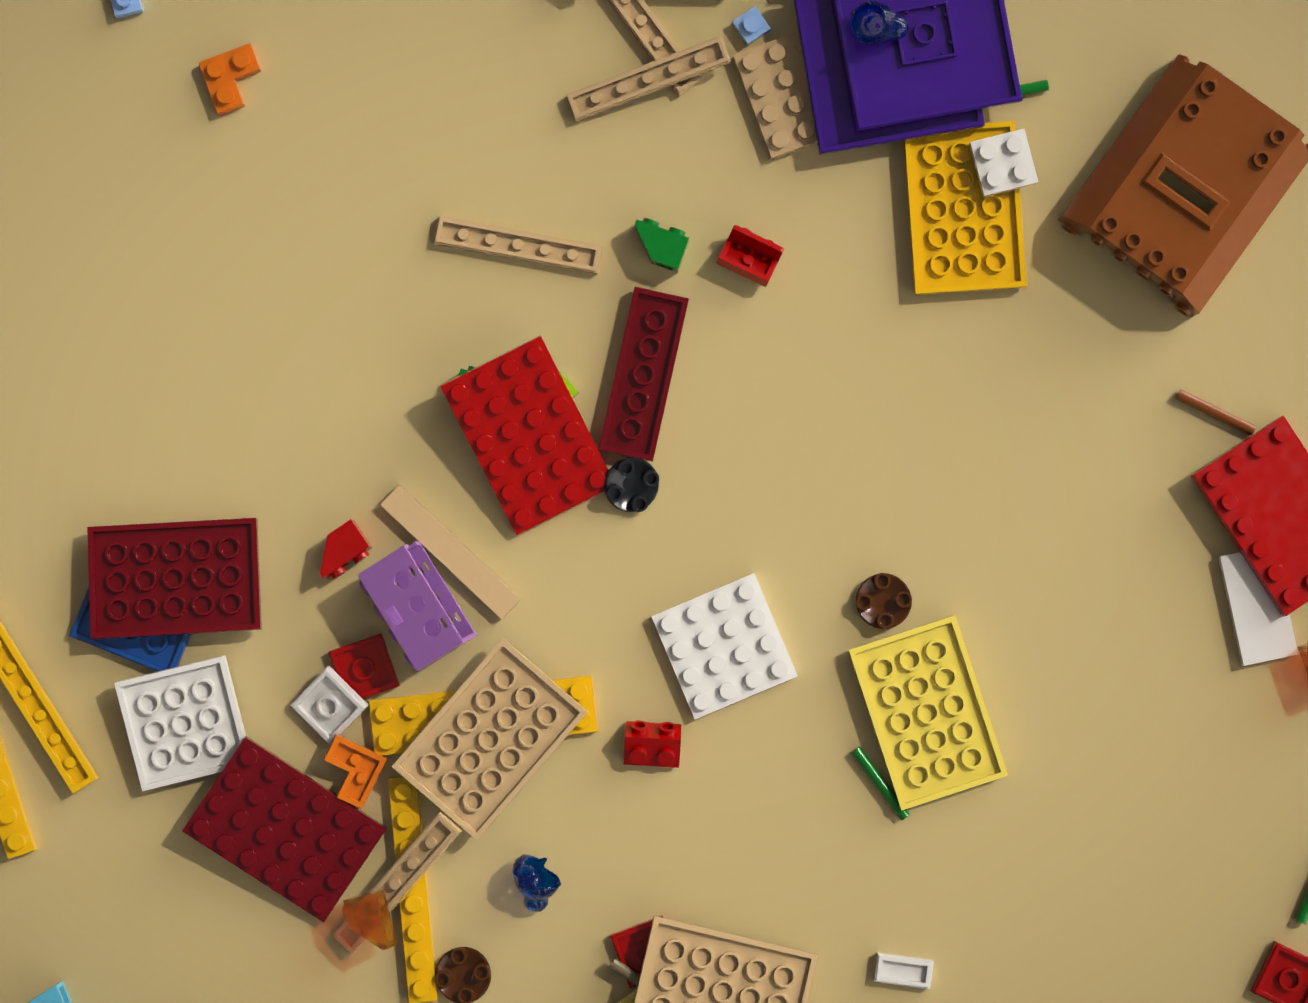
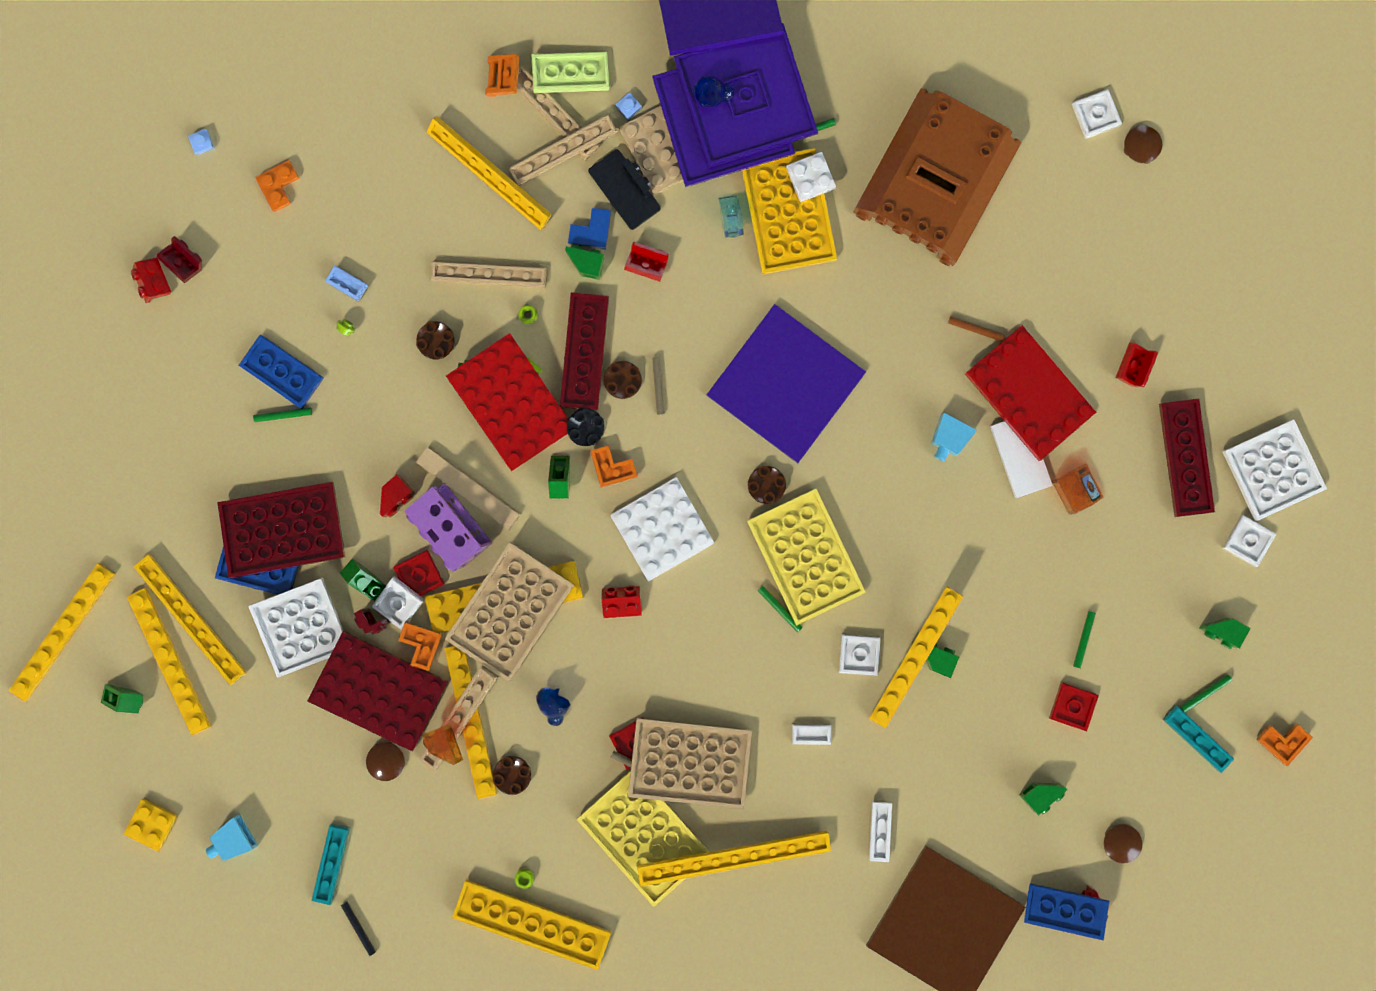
camera: 10 degrees left, 0 degrees up
(28, 191) = (150, 279): none -> red bracket
(76, 169) = (180, 260): none -> dark red bracket
(195, 411) = (282, 415): none -> green bar
(201, 348) = (281, 371): none -> blue tile
(281, 725) = (366, 621): none -> dark red bracket
(282, 665) = (362, 579): none -> green slope
(282, 932) = (385, 761): none -> reddish brown dish
(302, 296) = (345, 327): none -> lime plate
(311, 232) = (346, 283): none -> light blue plate
(429, 331) = (435, 340): none -> reddish brown dish
(537, 98) = (488, 173): none -> yellow plate
(568, 301) = (527, 308): none -> lime plate
(585, 552) = (559, 477): none -> green slope
(656, 553) = (611, 473): none -> orange plate
(678, 207) = (593, 235): none -> blue tile
(693, 422) = (622, 379): none -> reddish brown dish
(732, 145) = (625, 188): none -> black bracket
(744, 437) = (658, 385): none -> dark tan bar
(880, 205) = (731, 216): none -> clear light blue slope
(930, 457) = (786, 383): none -> dark purple tile
(987, 864) = (859, 654): none -> white tile
(1070, 878) = (916, 657): none -> yellow plate
(1102, 887) = (942, 661): none -> green slope
(1159, 564) = (950, 436): none -> medium azure torso

